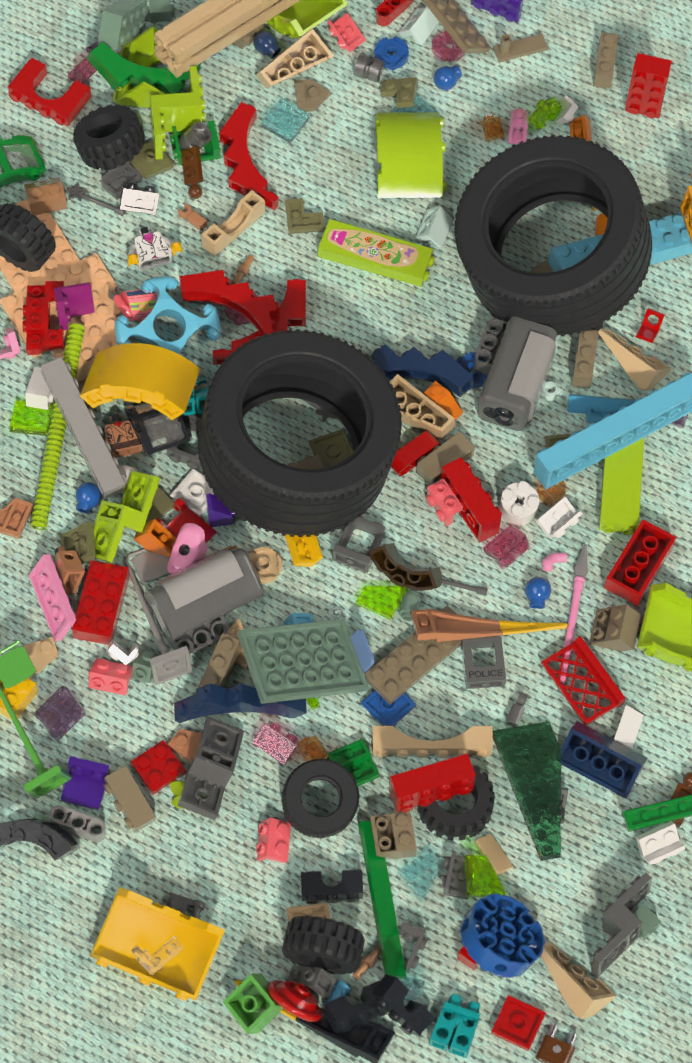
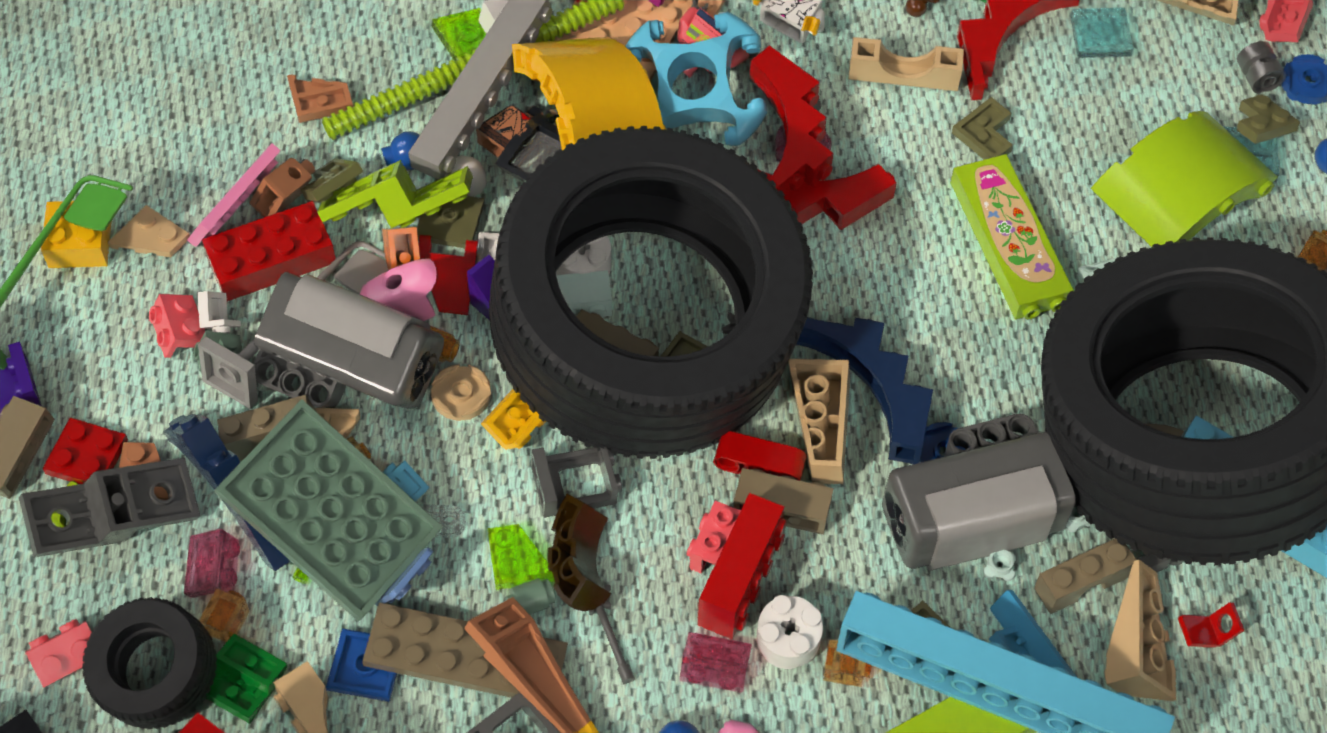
camera: 55 degrees right, 5 degrees down
(59, 713) = (80, 299): clear purple plate -> none
(193, 218) = (879, 24): nougat bar -> none
(243, 269) = (855, 117): medium nougat bar -> none
(310, 95) = (1161, 34): dark tan plate -> none
(443, 399) = (862, 445): orange slope -> none
(558, 518) = (812, 698): white bracket -> none

